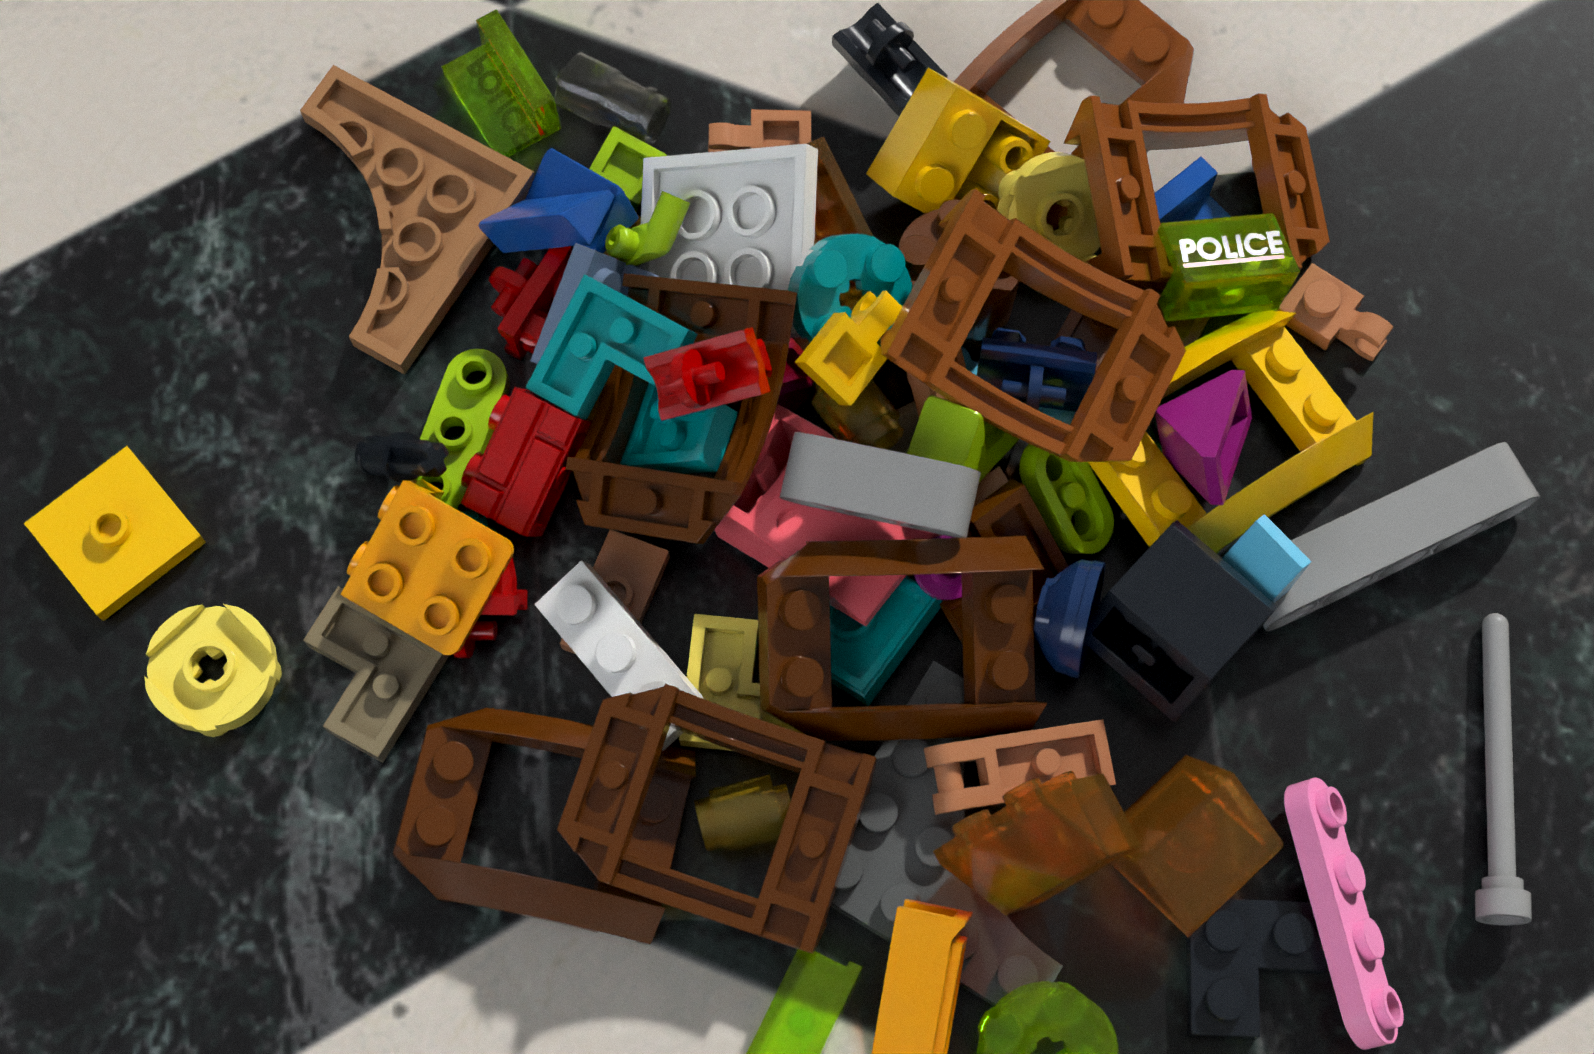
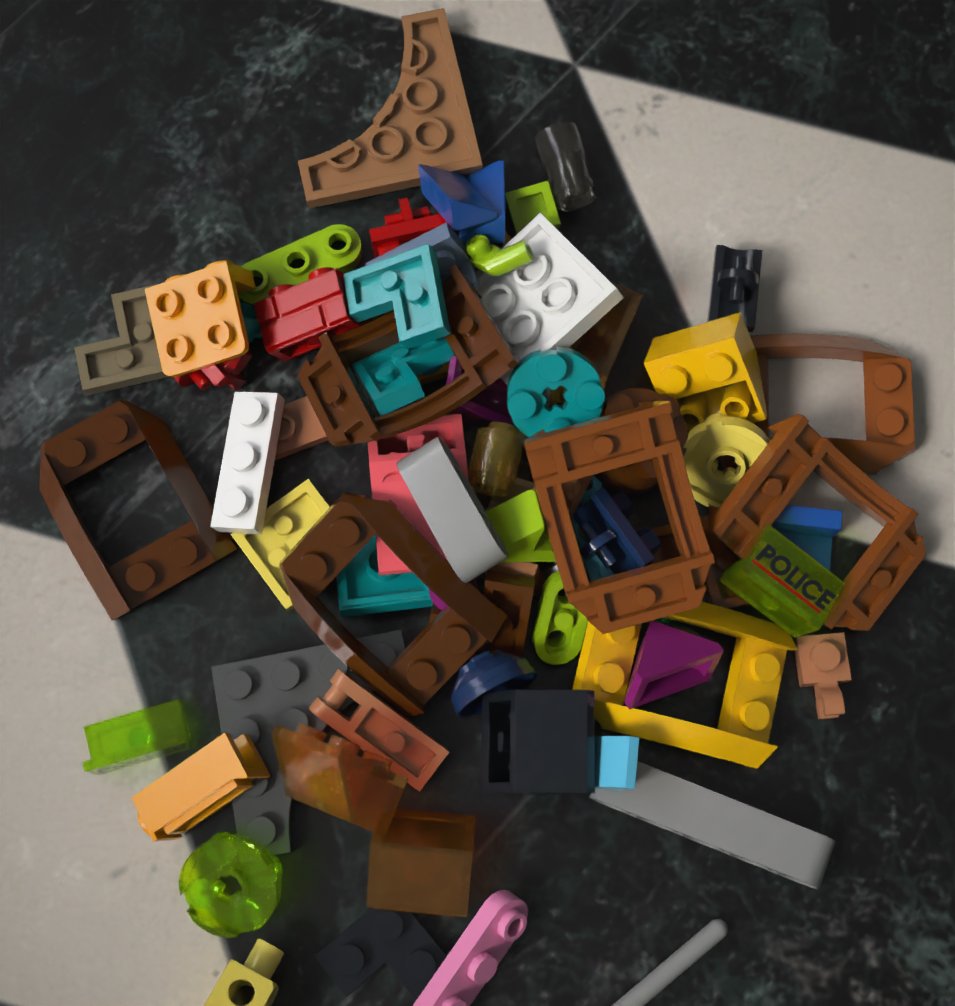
camera: 45 degrees right, 5 degrees up
(114, 533) = (88, 150): yellow plate -> none
(219, 704) = (74, 284): light yellow plate -> none
(400, 457) = (252, 248): black axle -> none
(503, 90) = (517, 106): clear neon green panel -> none
(710, 373) = (426, 361): red hips -> none
(742, 814) = (221, 605): clear yellow brick -> none
(766, 129) = (622, 267): nougat plate -> none
(811, 843) = (229, 655): reddish brown wedge -> none
(846, 349) = (510, 421): yellow plate -> none

